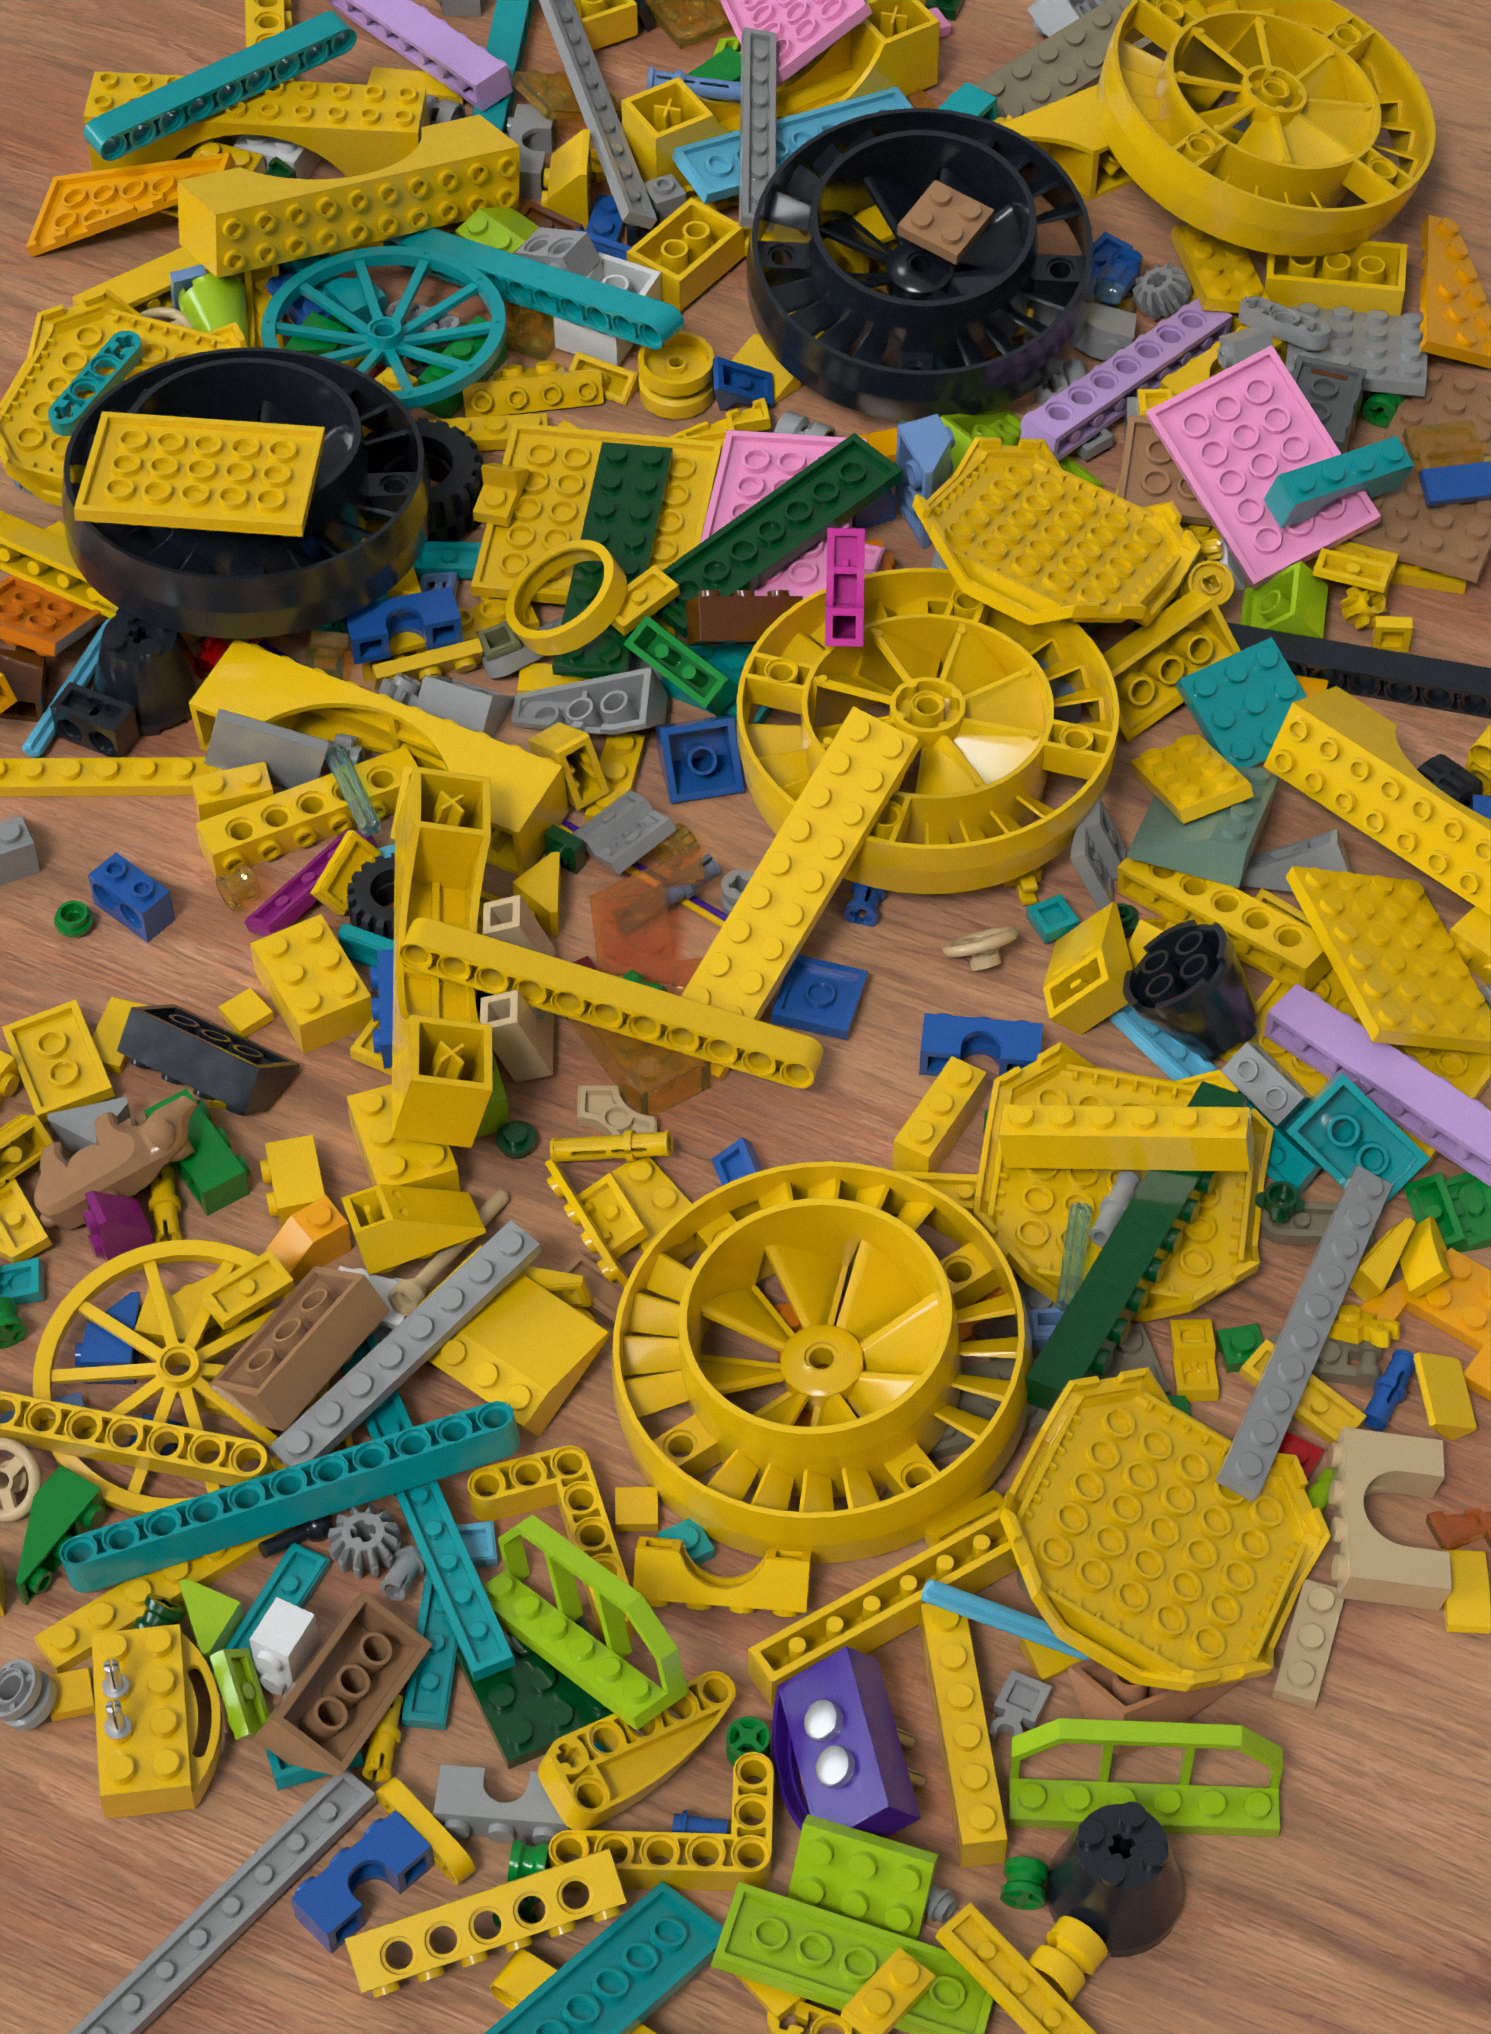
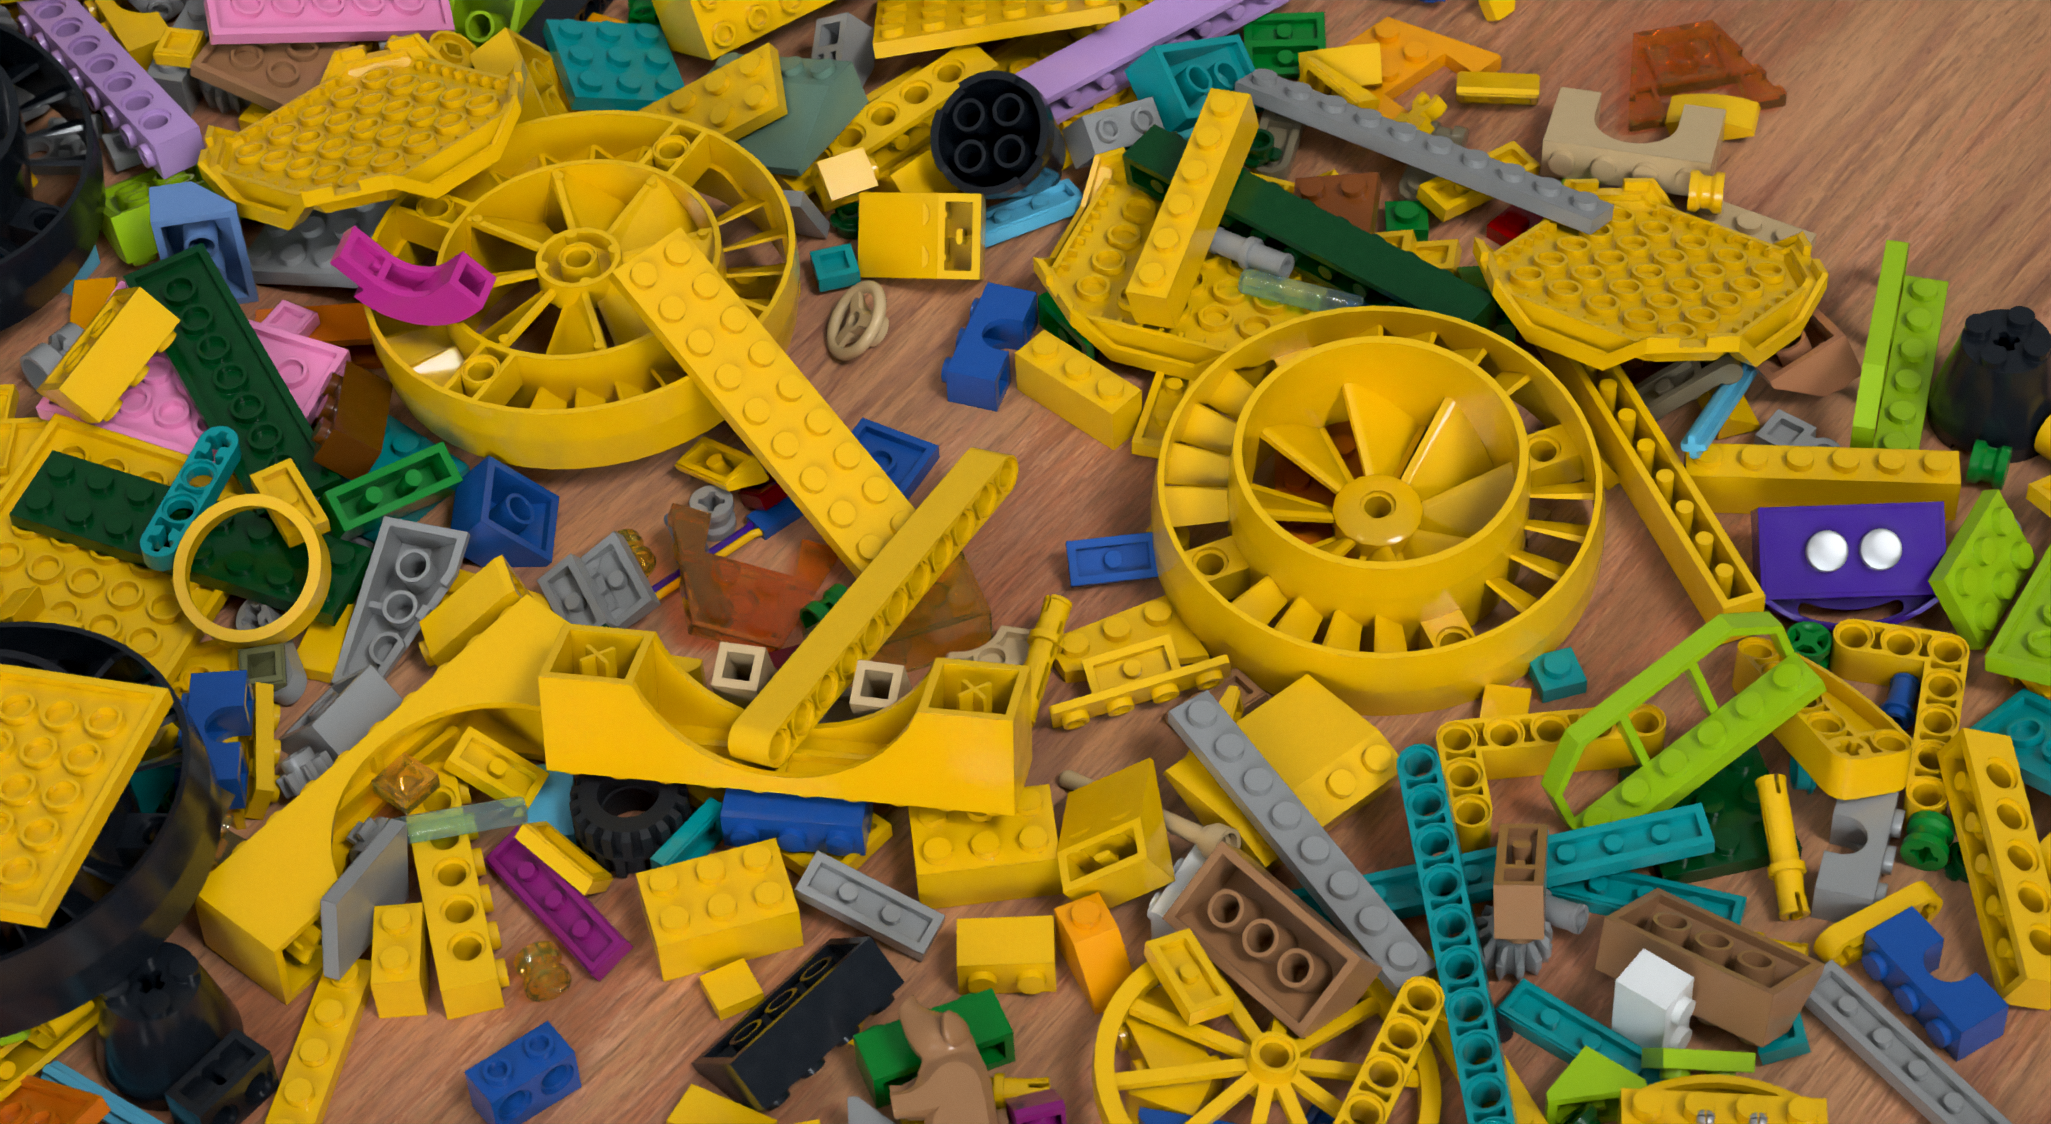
camera: 75 degrees left, 5 degrees down
(327, 1079) = (869, 906): none -> light grey plate
(381, 748) = (405, 783): none -> clear yellow plate
(394, 1520) = (1520, 882): none -> medium nougat slope
(476, 1744) = (1785, 866): none -> yellow pin
(633, 535) = (184, 495): none -> teal beam
(669, 1575) = (1628, 597): yellow arch -> none
(762, 449) = (110, 355): none -> yellow slope
(1133, 890) = (843, 177): none -> yellow brick
(1202, 1271) = (1344, 195): none -> dark orange wing
(1321, 1582) = (1706, 191): none -> yellow wheel
(1389, 1390) = (1481, 123): blue pin -> none

